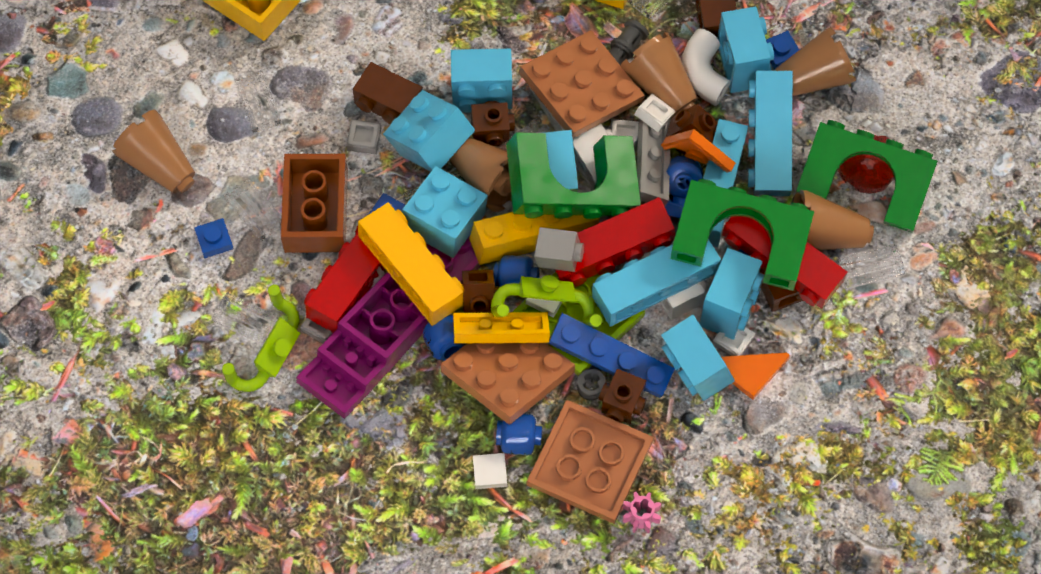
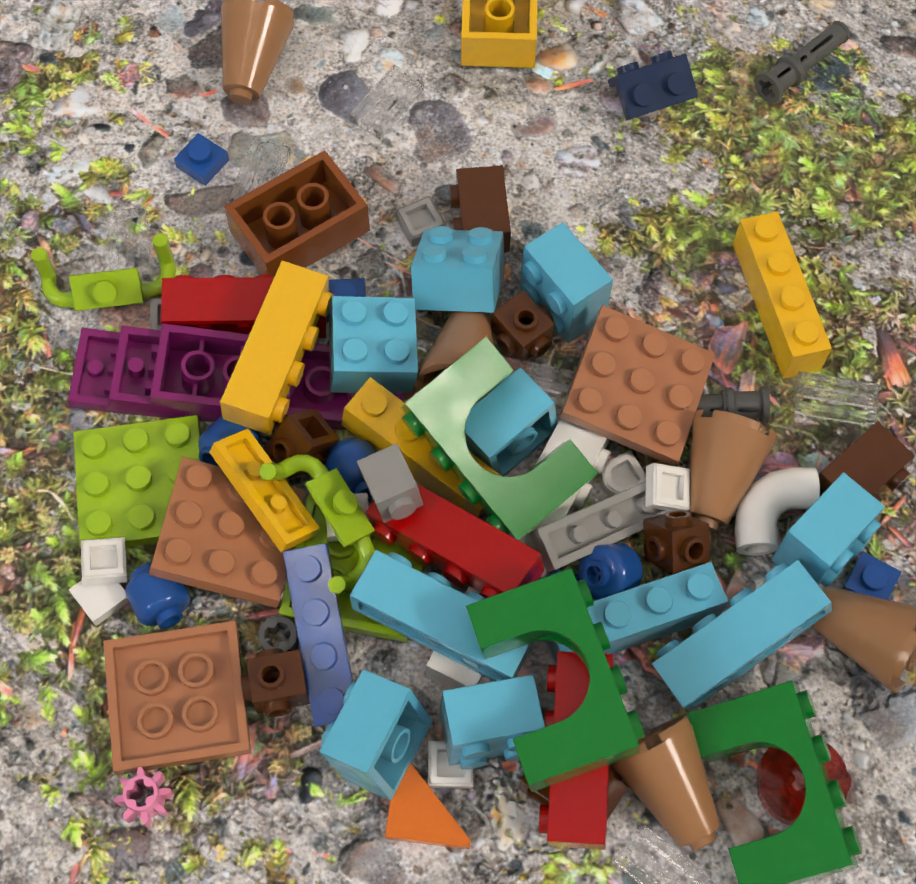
camera: 55 degrees right, 0 degrees up
(424, 409) = (129, 476): none -> lime plate
(473, 453) = (103, 561): none -> white tile
(698, 149) = (645, 566): orange tile -> none

